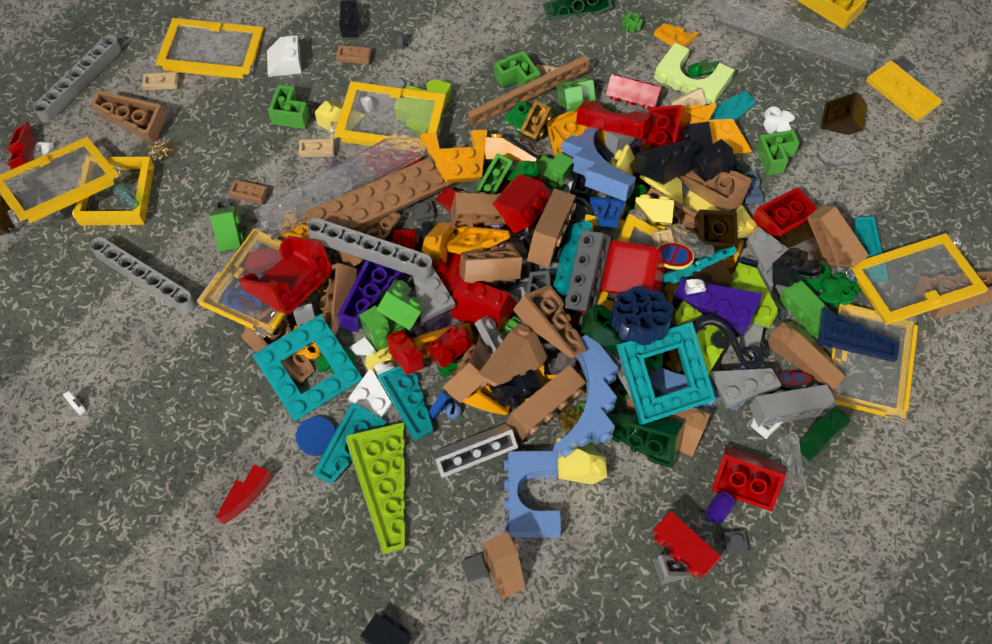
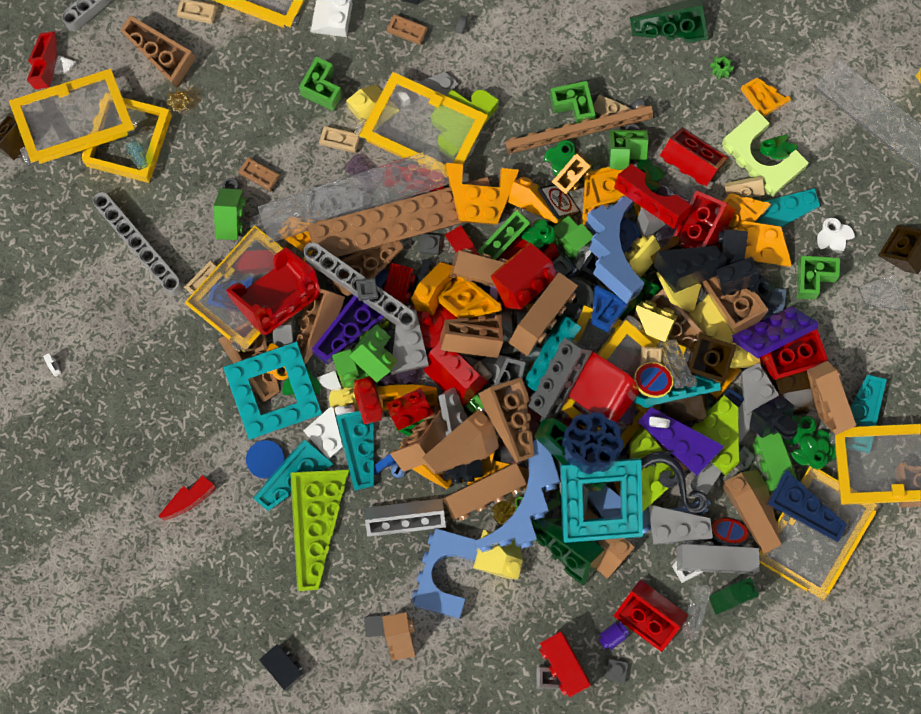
camera: 20 degrees right, 15 degrees up
(377, 244) = (367, 289): none -> dark grey tile
(764, 197) = (775, 332): none -> dark purple plate

